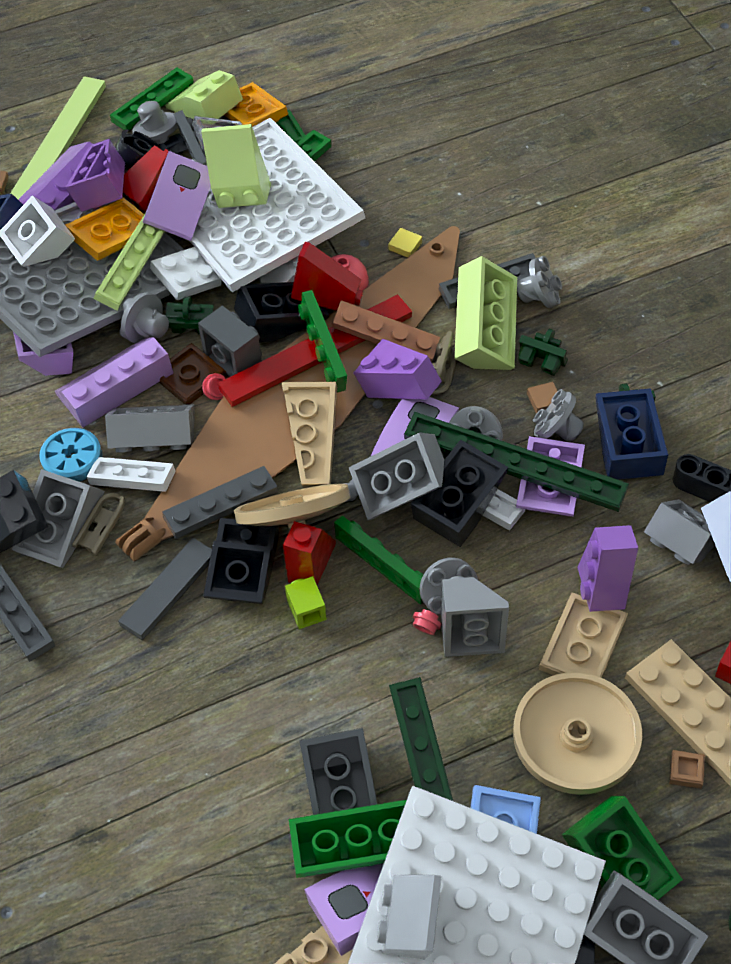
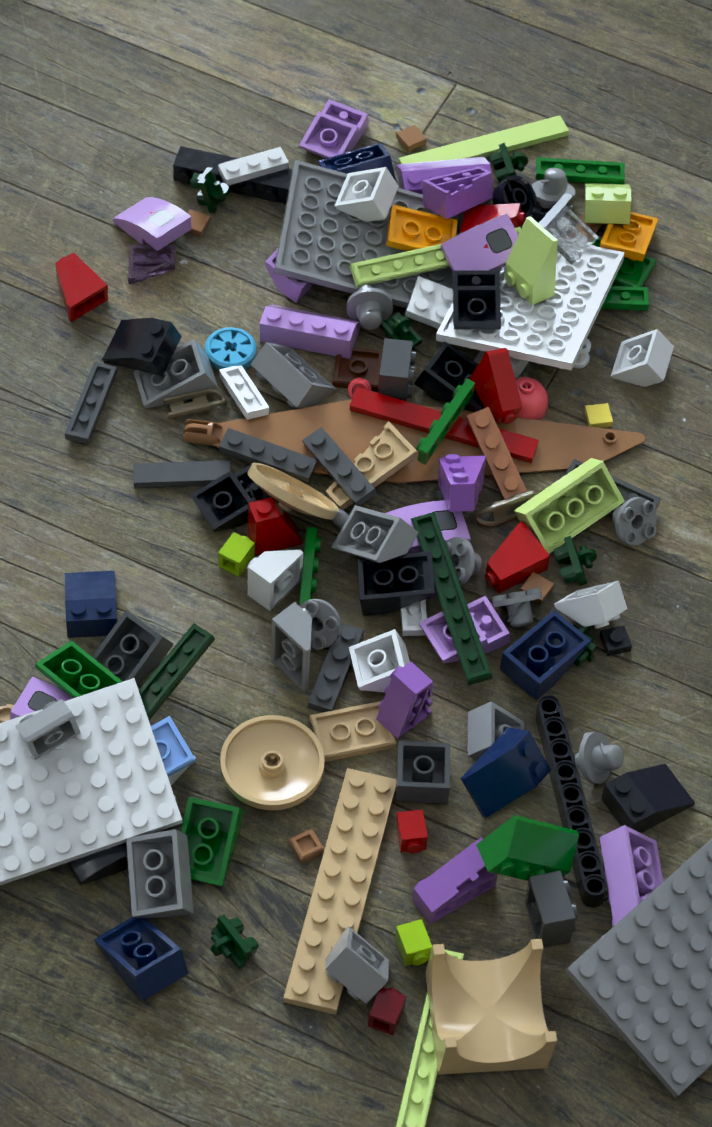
camera: 45 degrees right, 0 degrees up
(94, 133) = (503, 158): none -> dark green hips
(226, 234) = (476, 299): none -> black slope
(246, 770) = (90, 603): none -> dark blue slope
(290, 453) = (339, 467): none -> dark grey plate
(365, 588) = (274, 576): none -> white slope
(380, 178) = (643, 359): none -> white slope
(504, 389) = (516, 559): none -> red slope
(521, 630) = (334, 670): none -> dark grey plate
(536, 564) = (377, 659): none -> white slope
(606, 365) = (594, 605): none -> white slope
(646, 377) = (615, 640): none -> black plate
(685, 610) = (423, 772): none -> dark grey brick

